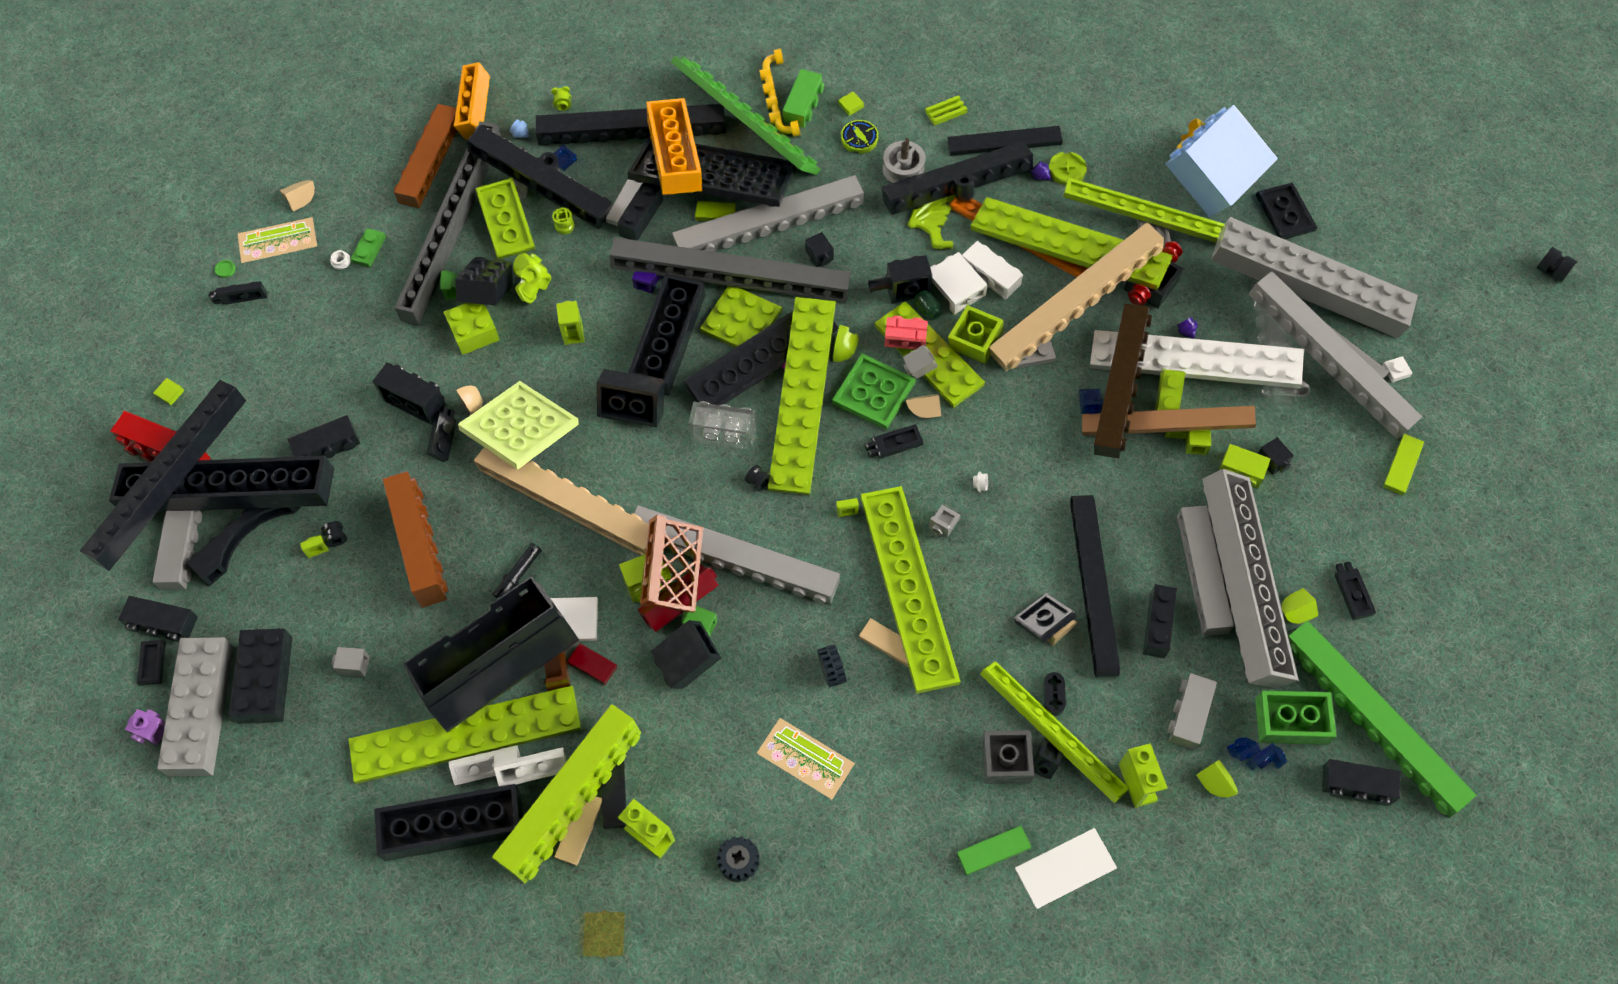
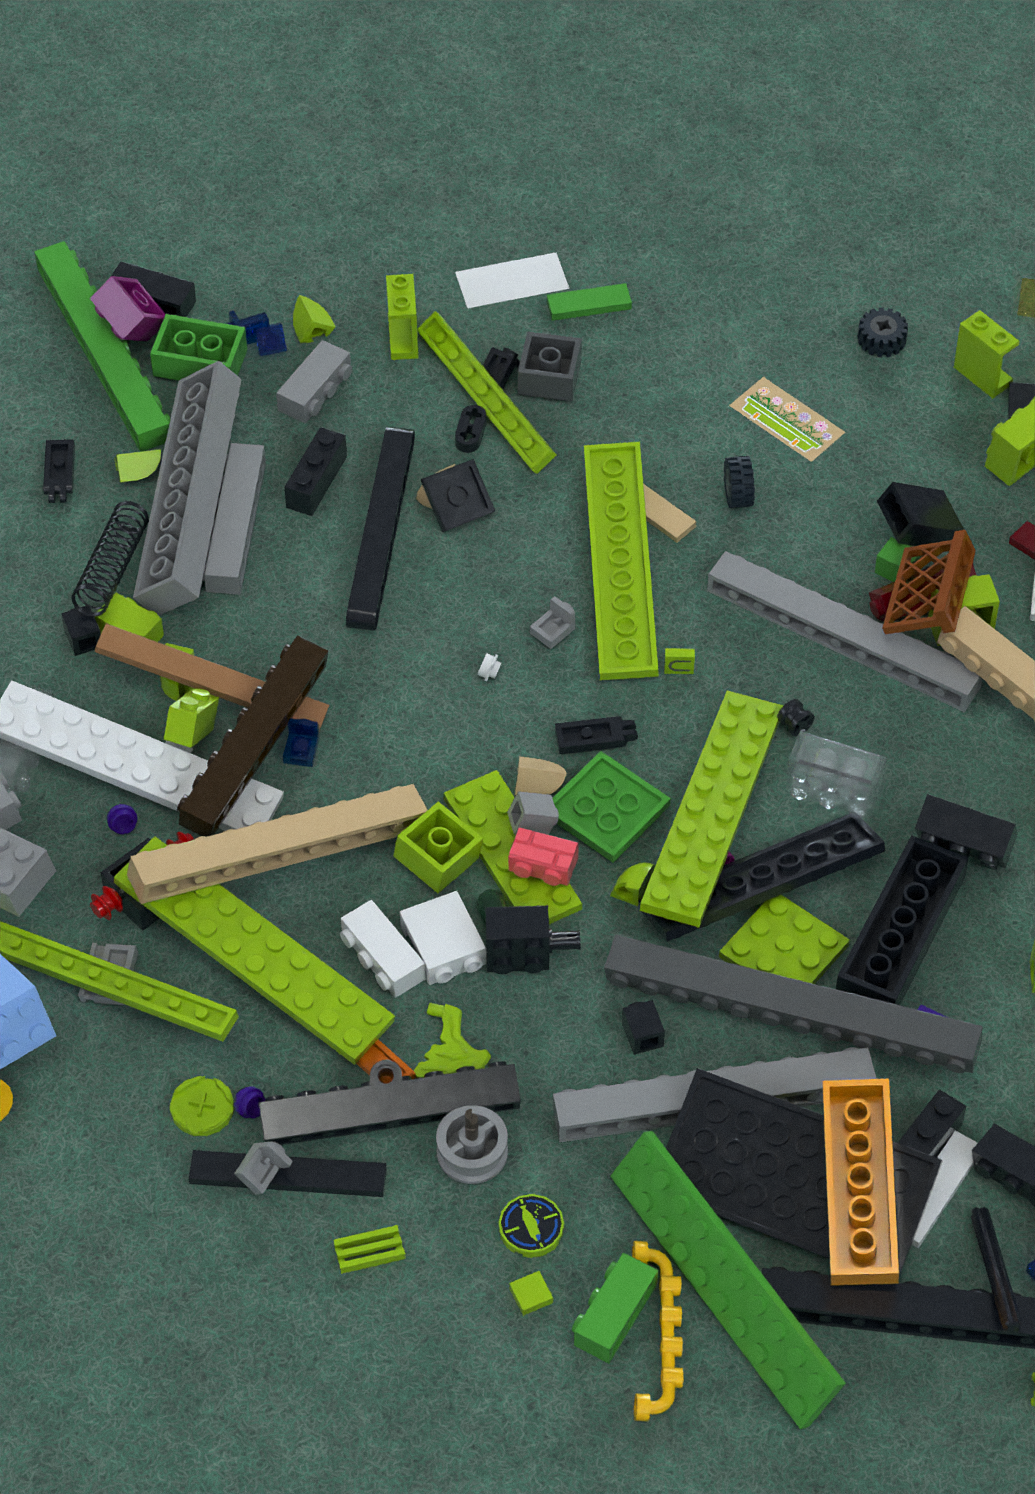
camera: 170 degrees left, 10 degrees down
(593, 141) = (996, 1270): none -> black axle
(1019, 127) = (261, 1165): none -> light grey bracket
(1280, 553) = (139, 531): none -> black piece
(1367, 736) = (128, 309): none -> magenta brick

